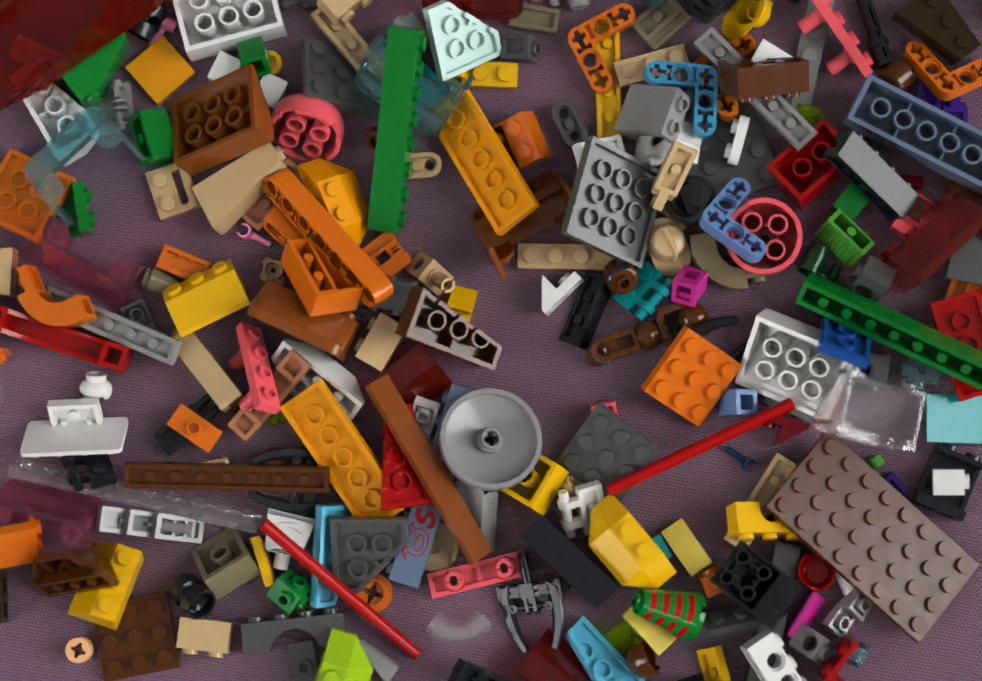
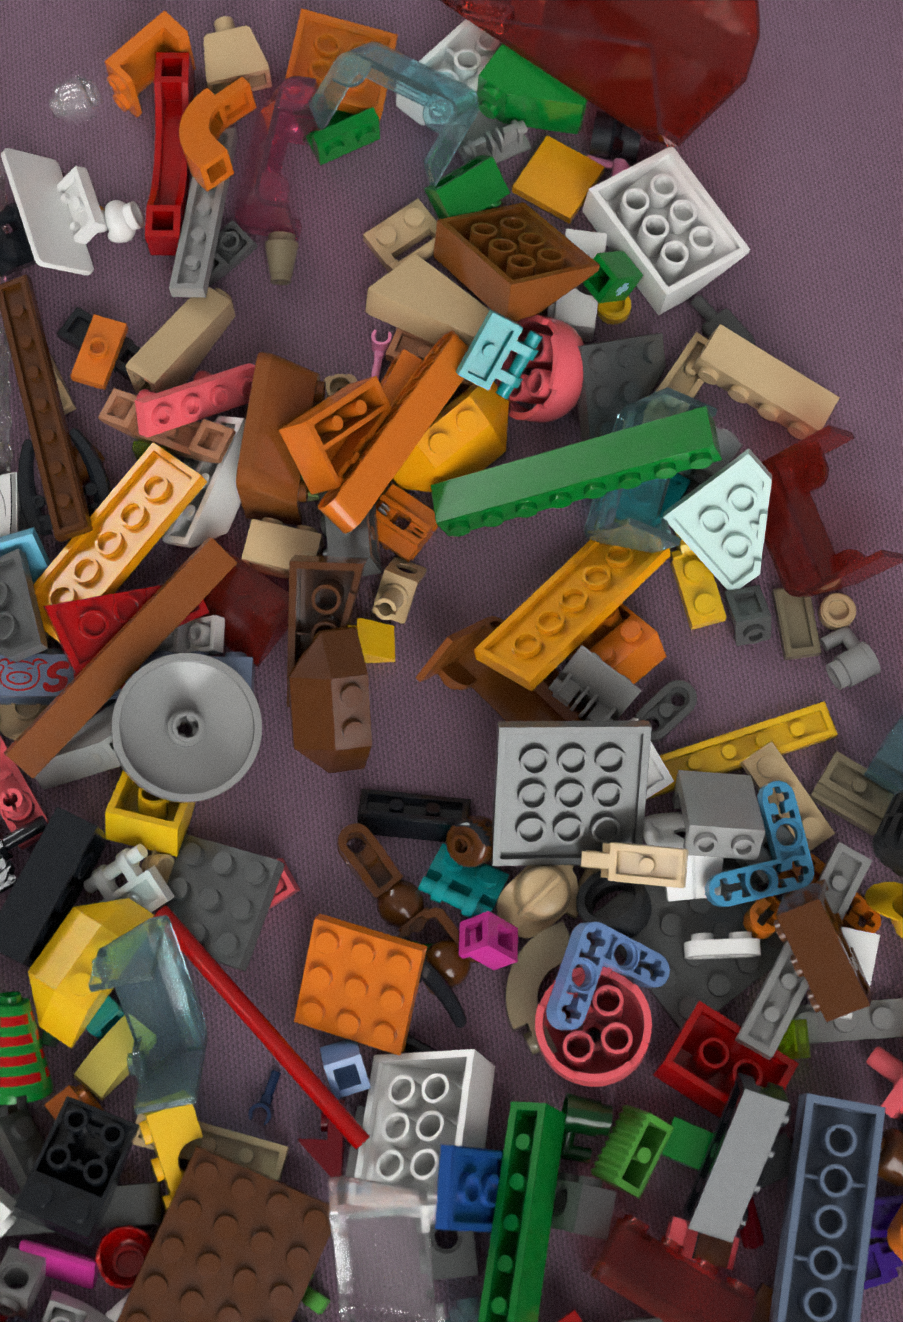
camera: 70 degrees right, 10 degrees down
(180, 263) = (312, 278): orange plate -> none
(205, 297) = (275, 311): yellow slope -> none
(290, 157) = (490, 350): none -> plate
(419, 161) = (542, 530): tan plate -> none
(502, 337) = (332, 702): none -> reddish brown wedge
(547, 162) = (594, 686): none -> light grey hinge
(554, 297) = (418, 761): white slope -> none
(560, 257) = (473, 750): tan plate -> none
(593, 38) = (796, 705): orange beam -> none
(662, 507) = (160, 1012): none -> clear light blue windscreen

